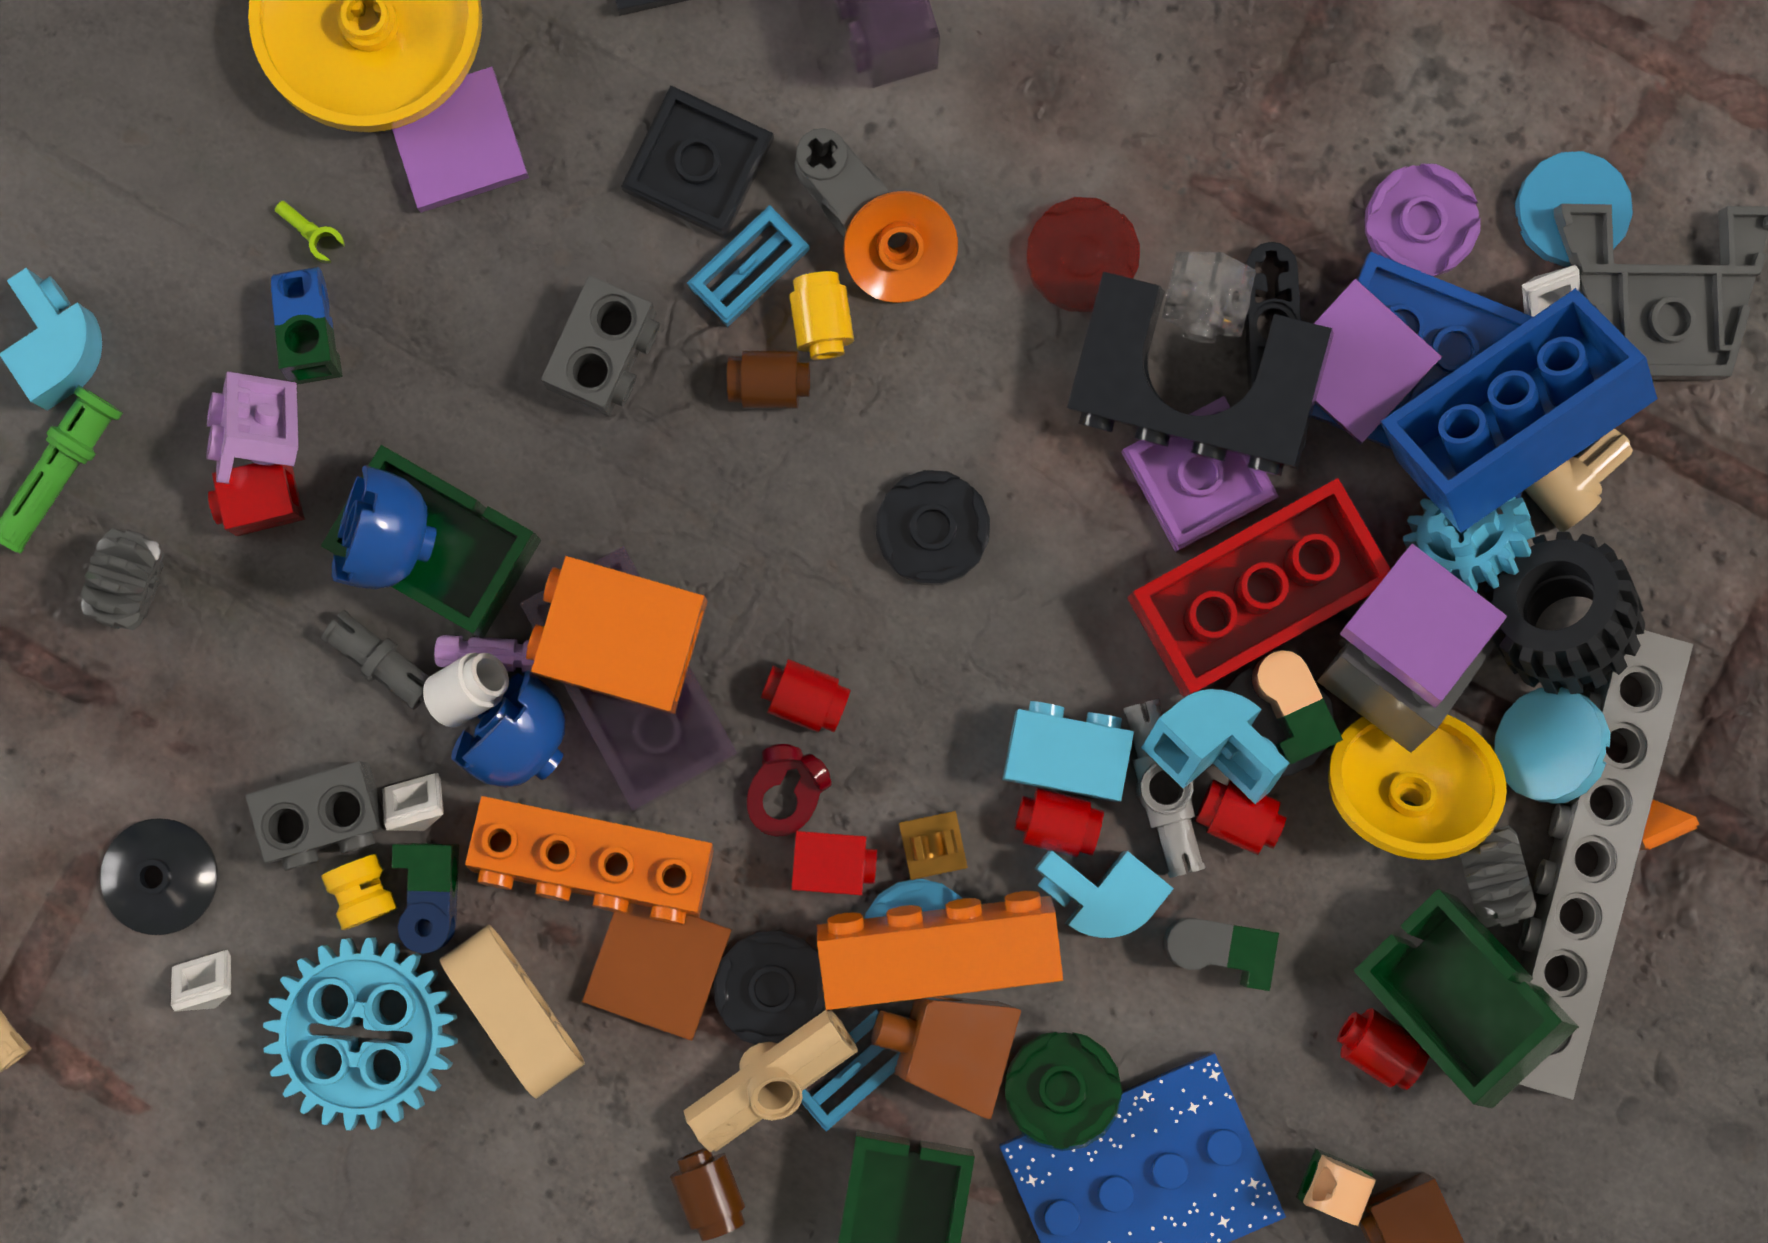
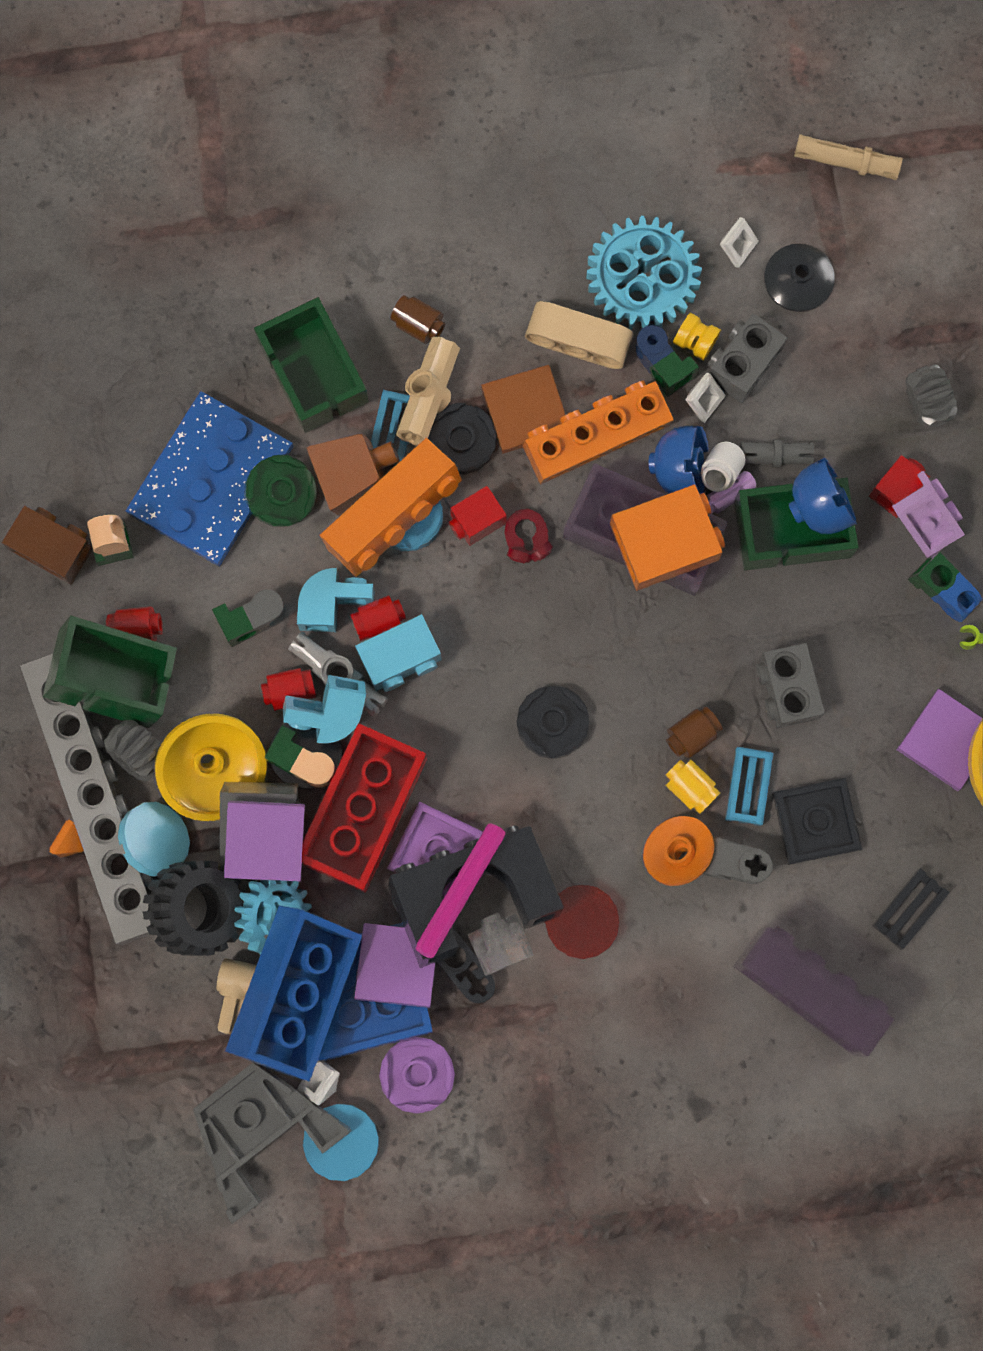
camera: 145 degrees right, 5 degrees down
(805, 696) = (552, 588): red brick -> none
(933, 845) = (433, 564): pearl gold tile -> none
(1220, 380) = (460, 890): none -> dark pink axle

